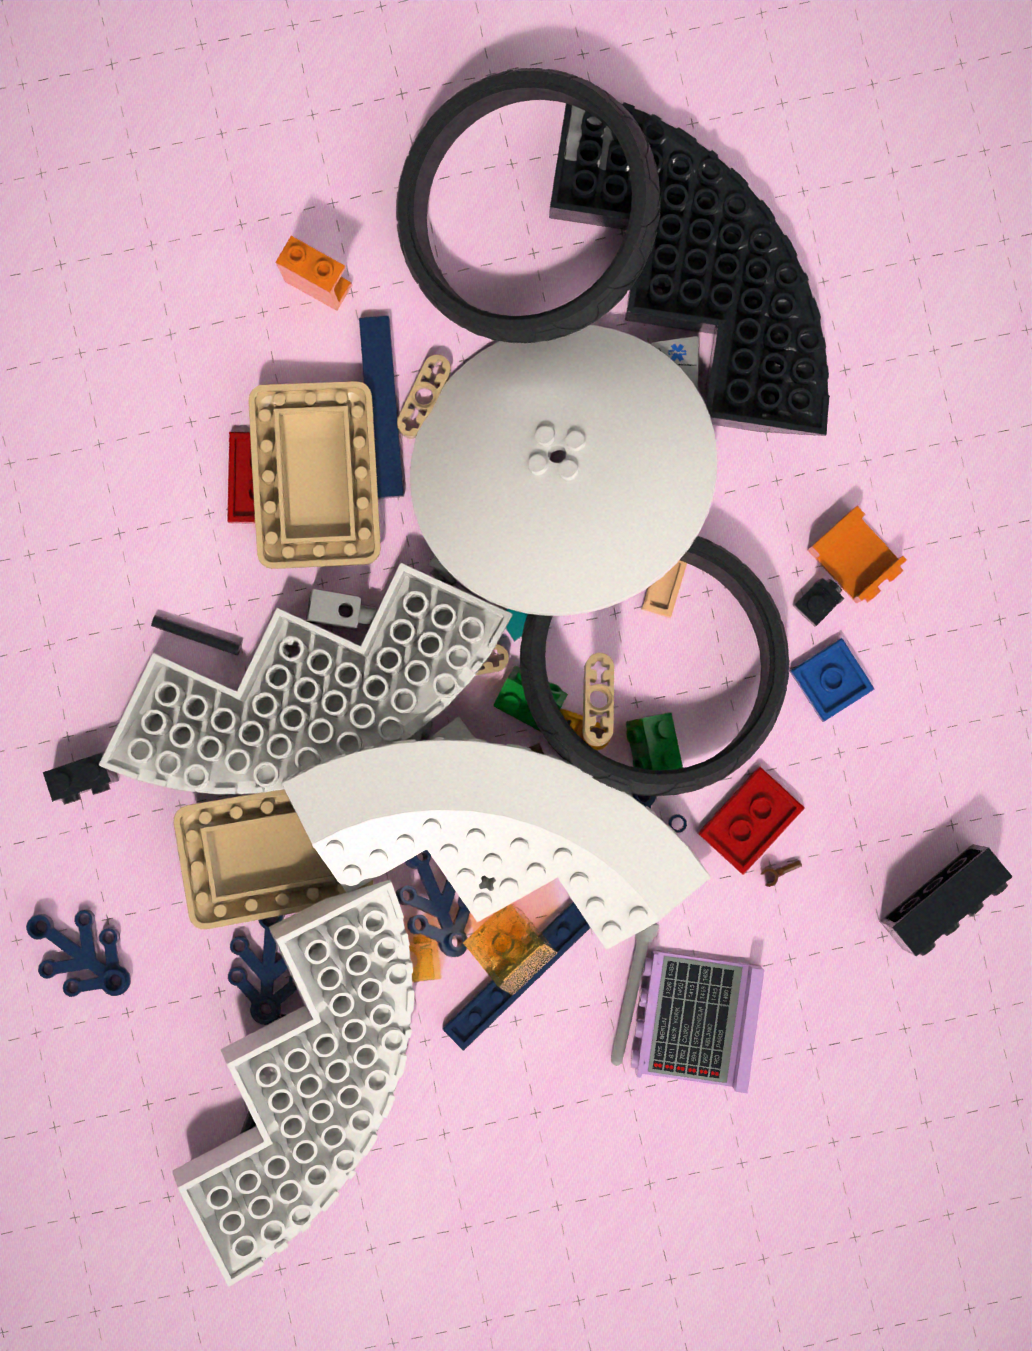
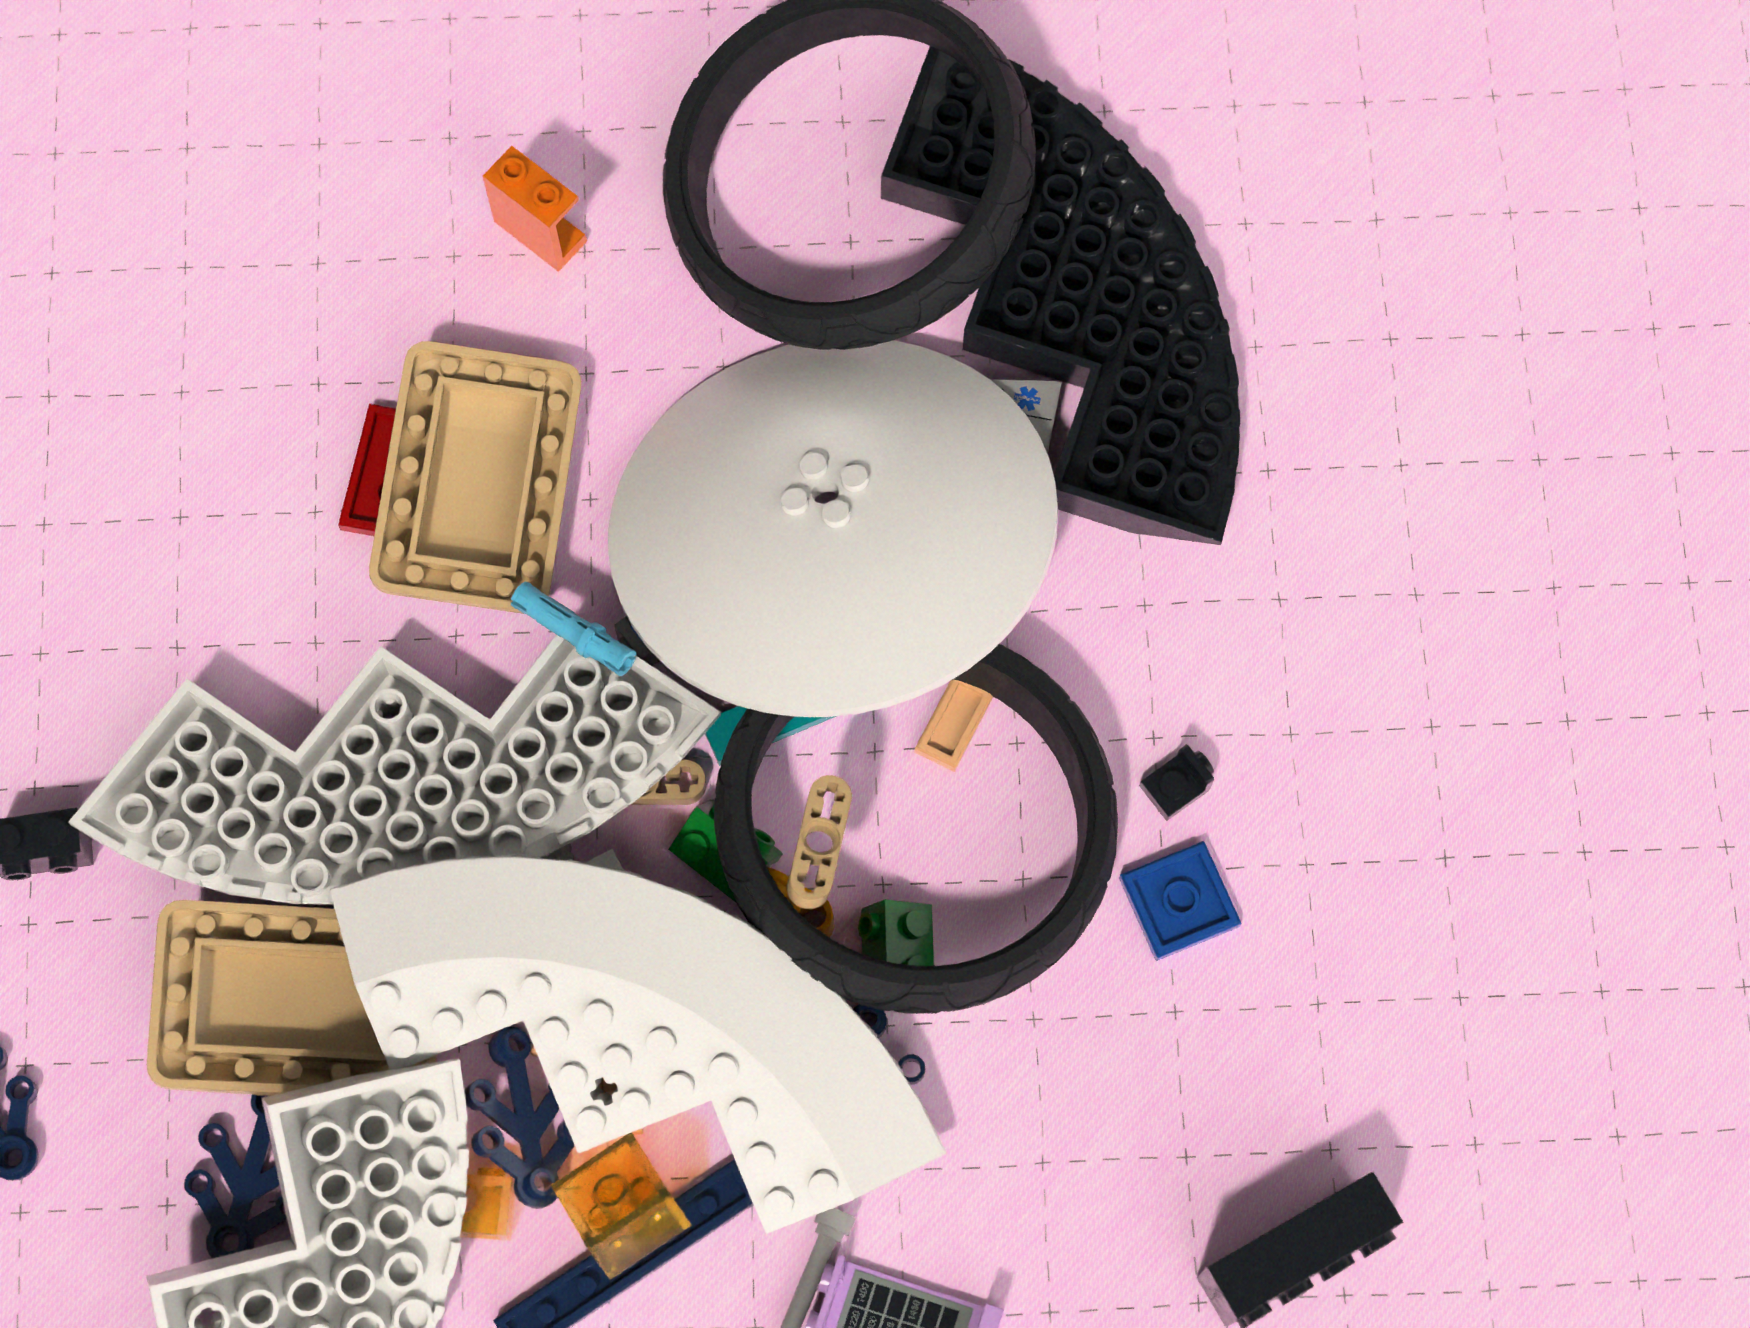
camera: 10 degrees right, 15 degrees down
(196, 635) = (256, 675): black bar -> none
(324, 608) = (456, 655): light grey torso -> none
(379, 377) = (600, 368): dark blue tile -> none
(415, 580) = (587, 637): none -> medium azure pin
(440, 380) = (665, 371): tan beam -> none
(751, 820) = (1024, 1087): red tile -> none
(780, 871) = (1056, 1172): reddish brown hand -> none
(856, 557) = (1242, 727): orange panel -> none

